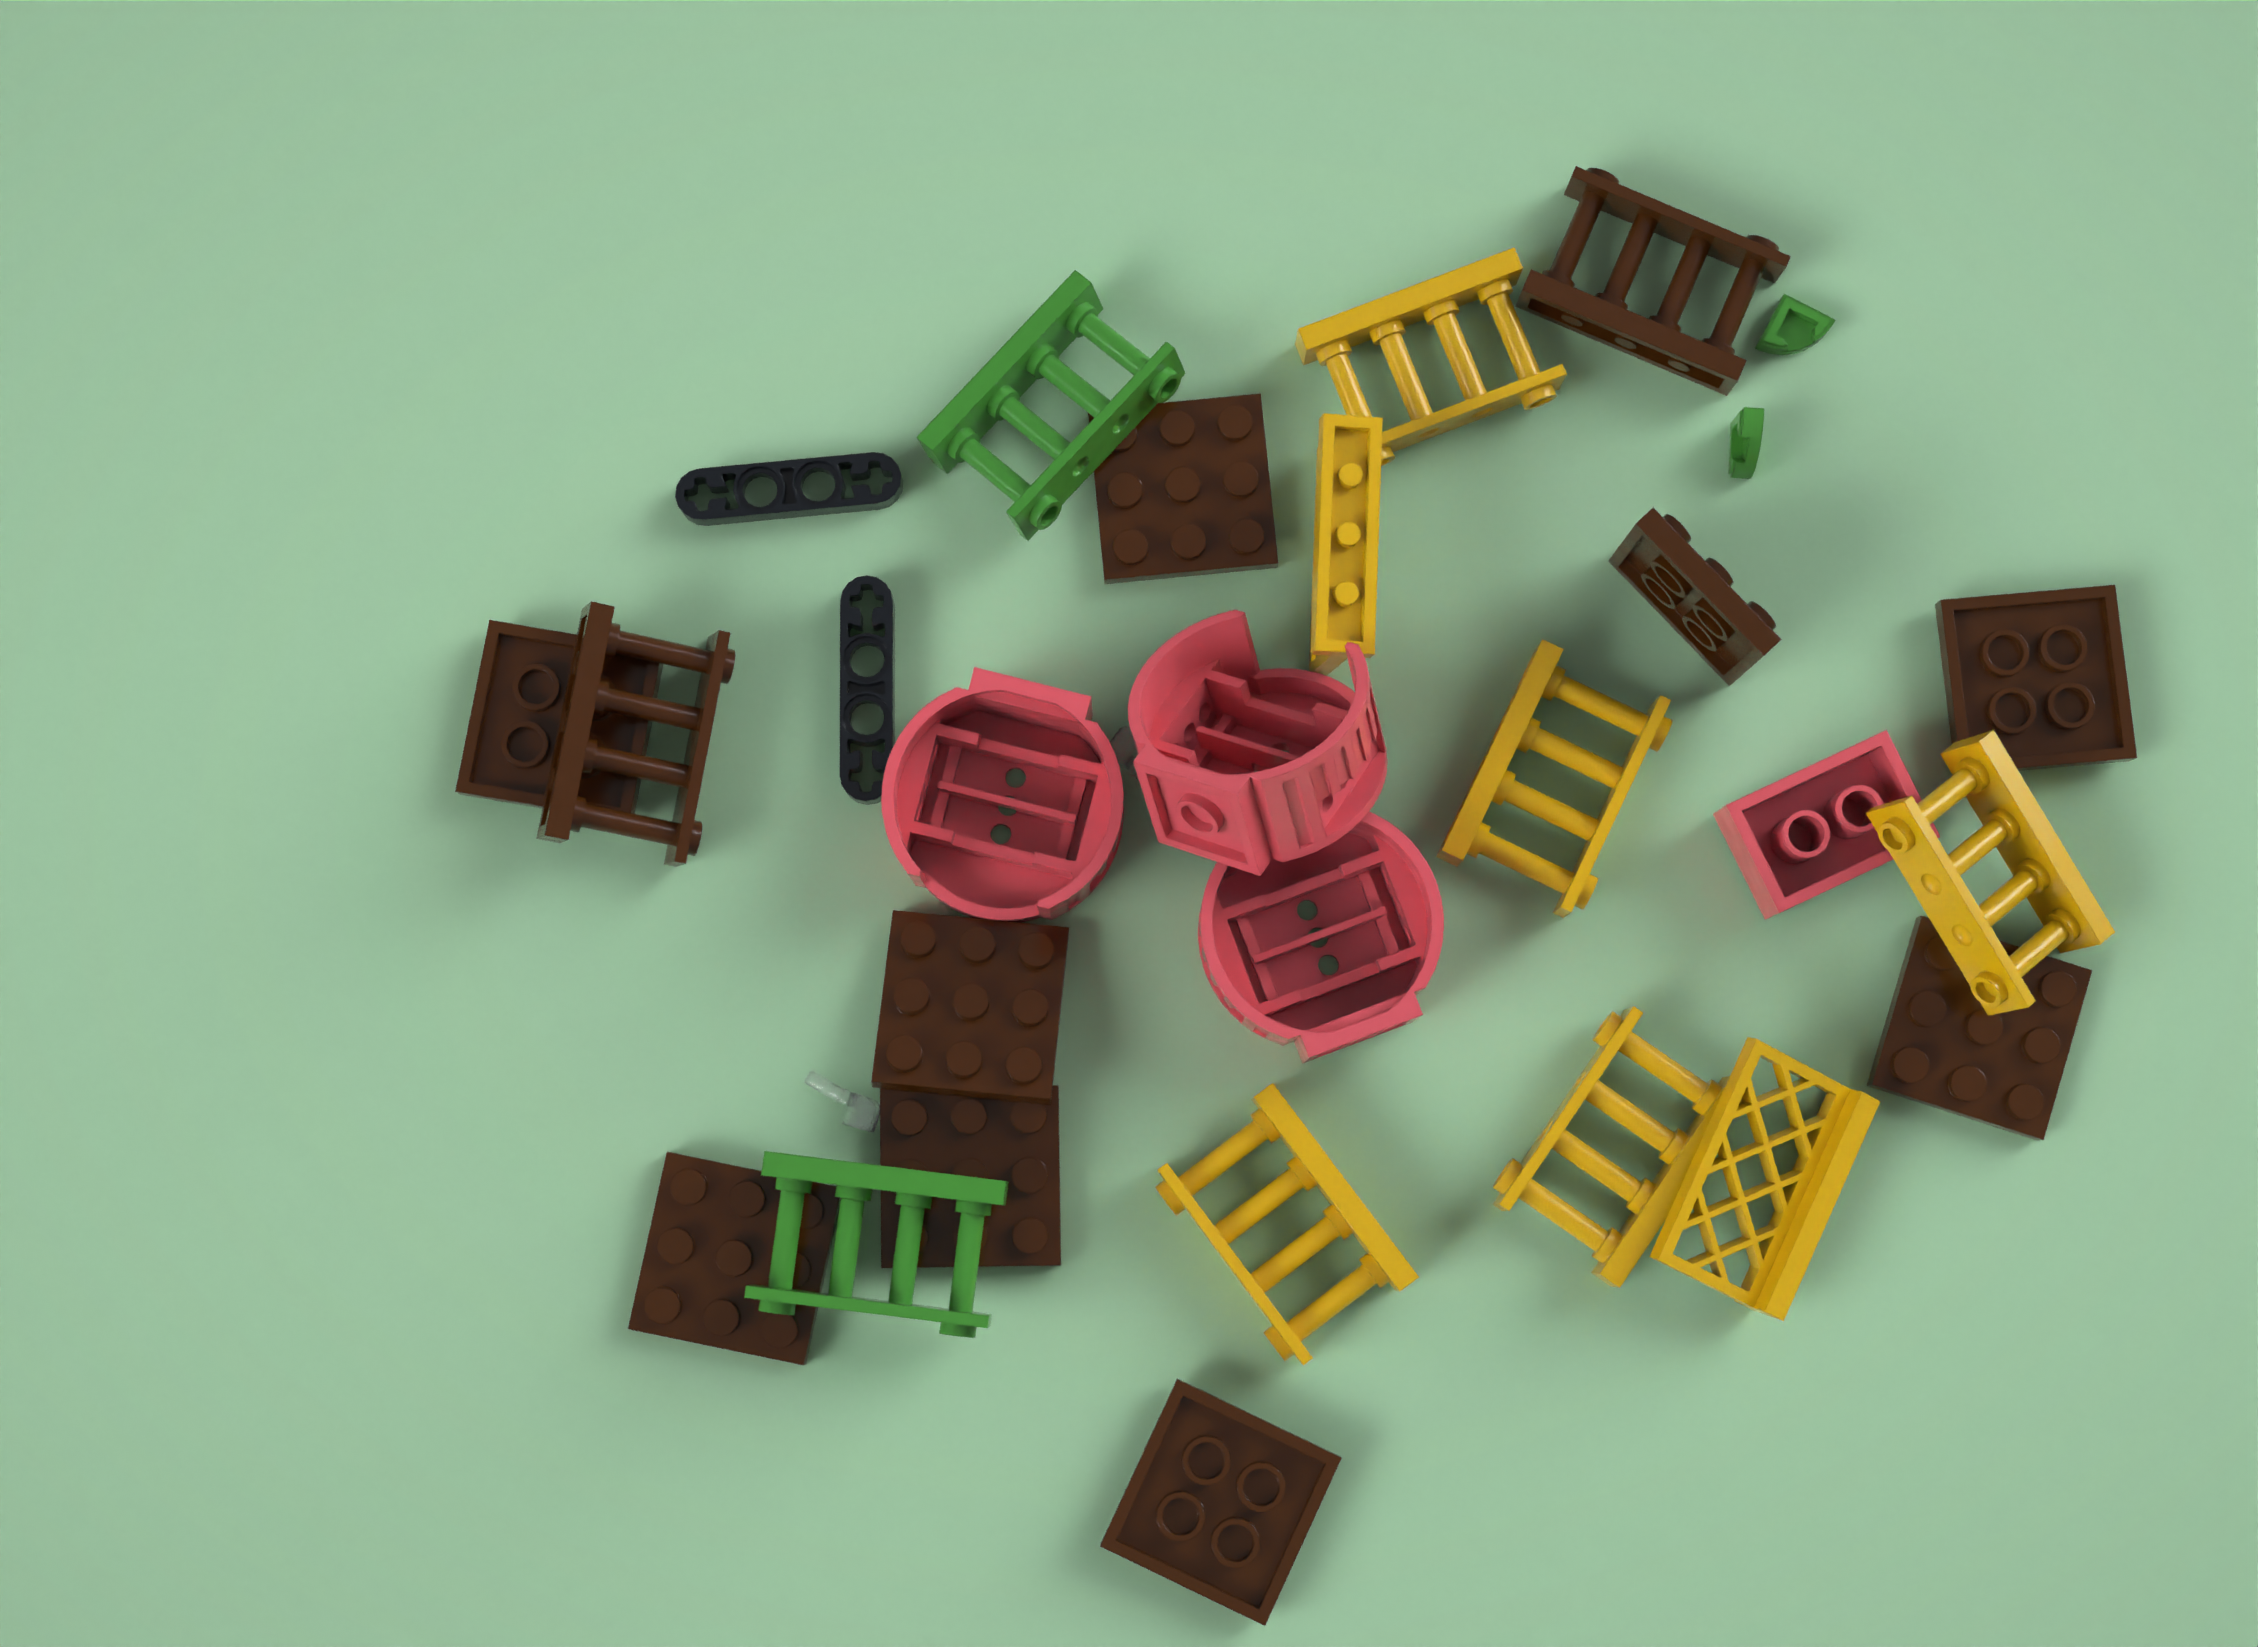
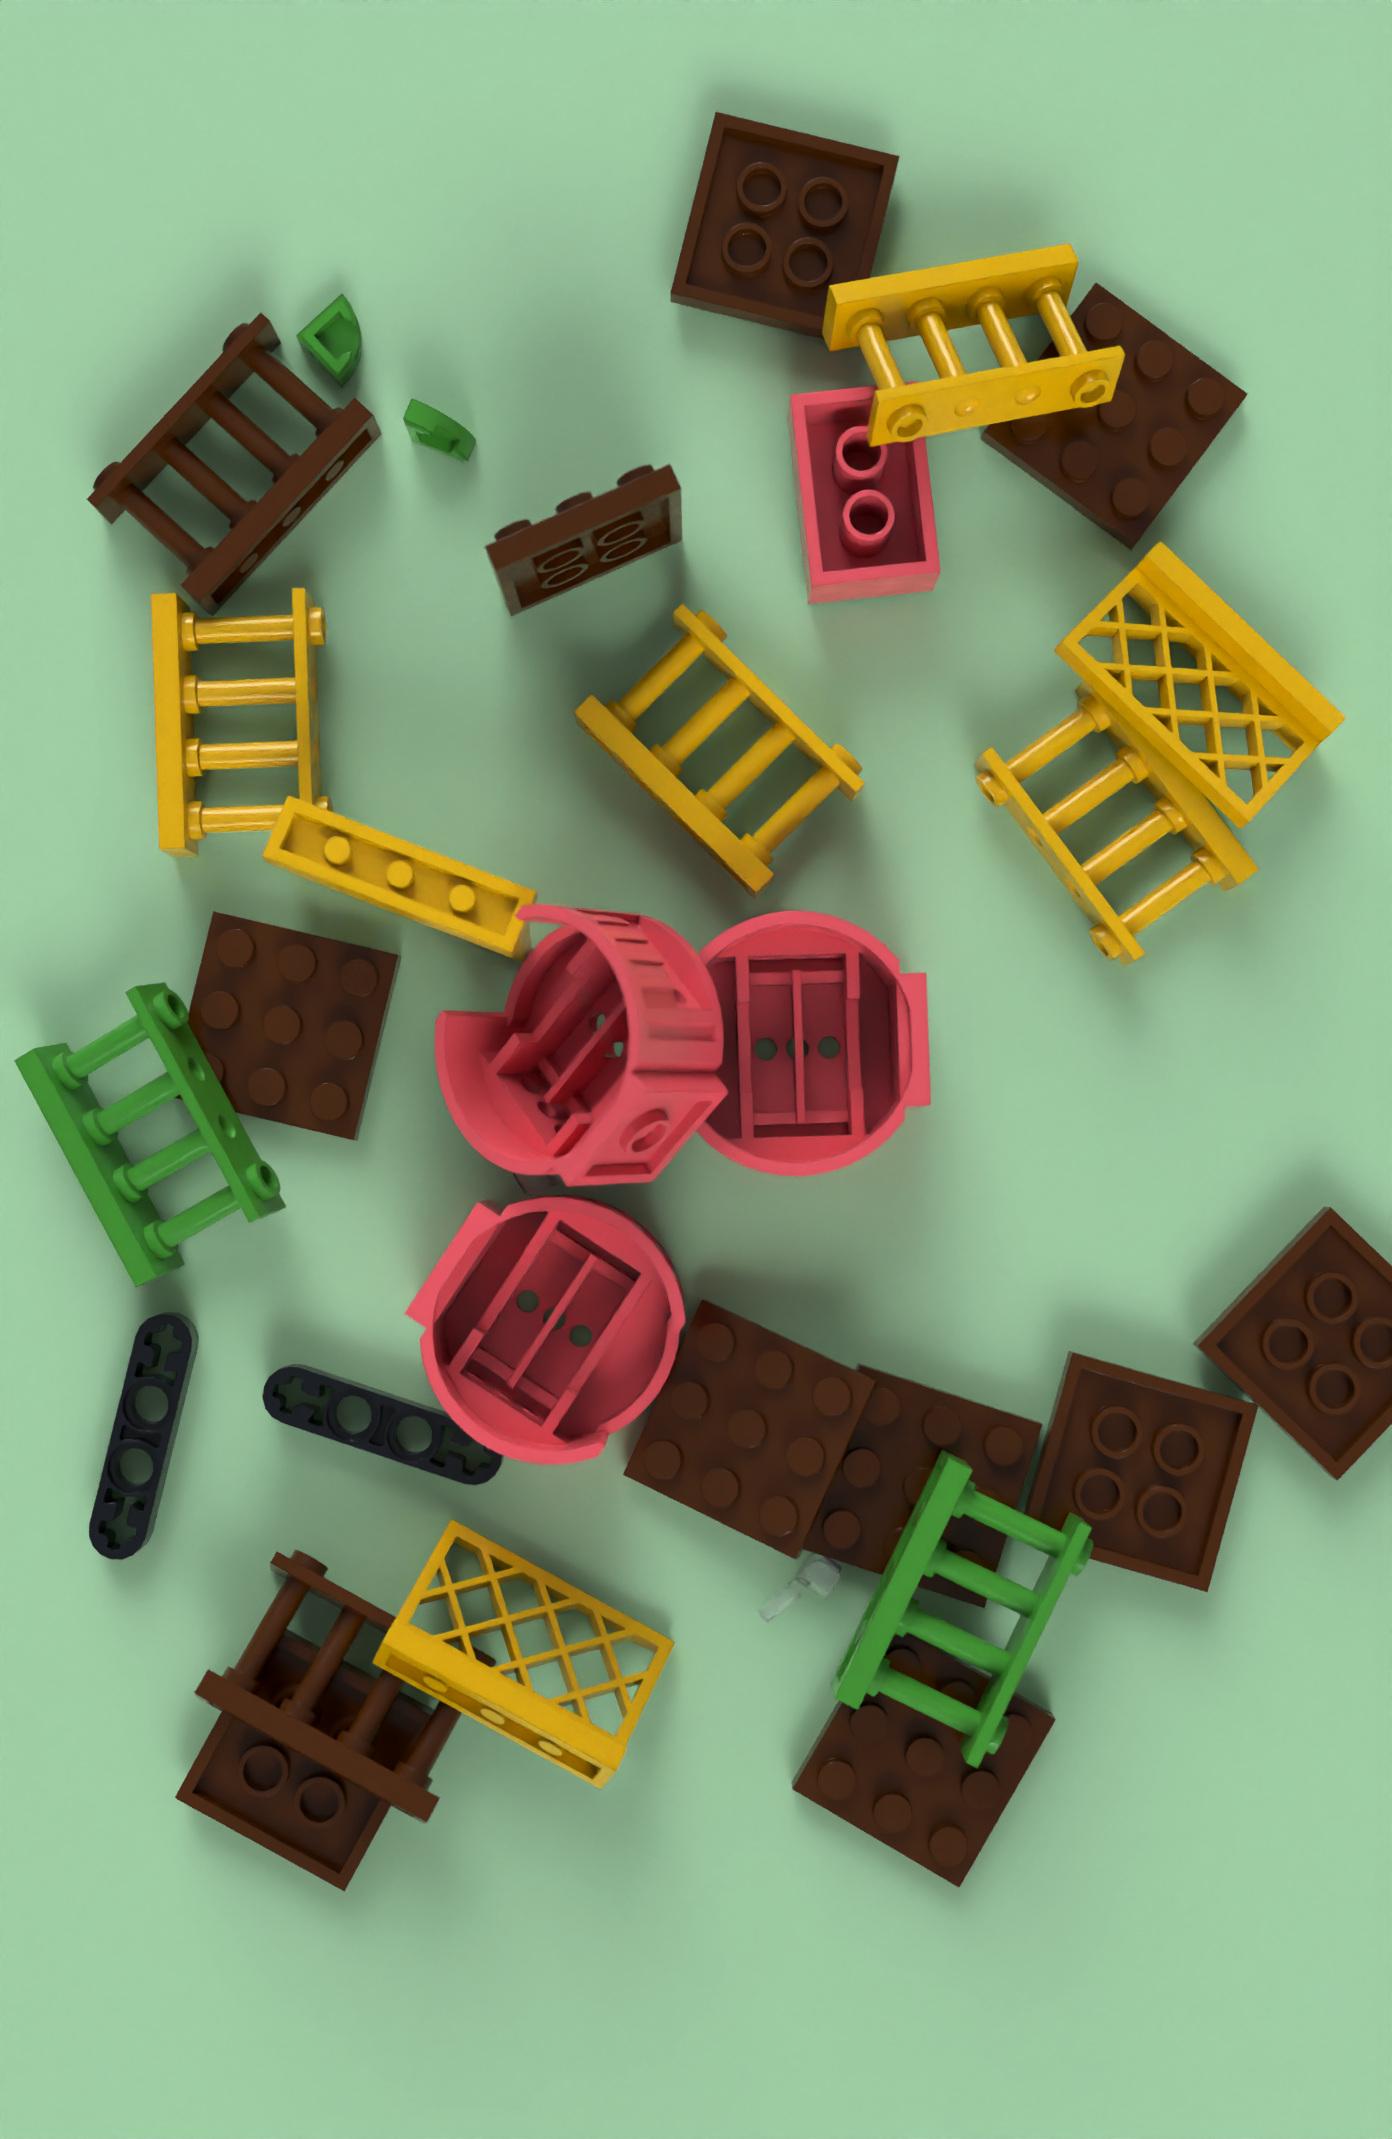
camera: 70 degrees left, 5 degrees up
(665, 864) = (510, 1705): none -> yellow fence
(1051, 1367) = (1143, 1467): none -> reddish brown plate
(1342, 1218) = (1091, 1122): yellow fence -> none

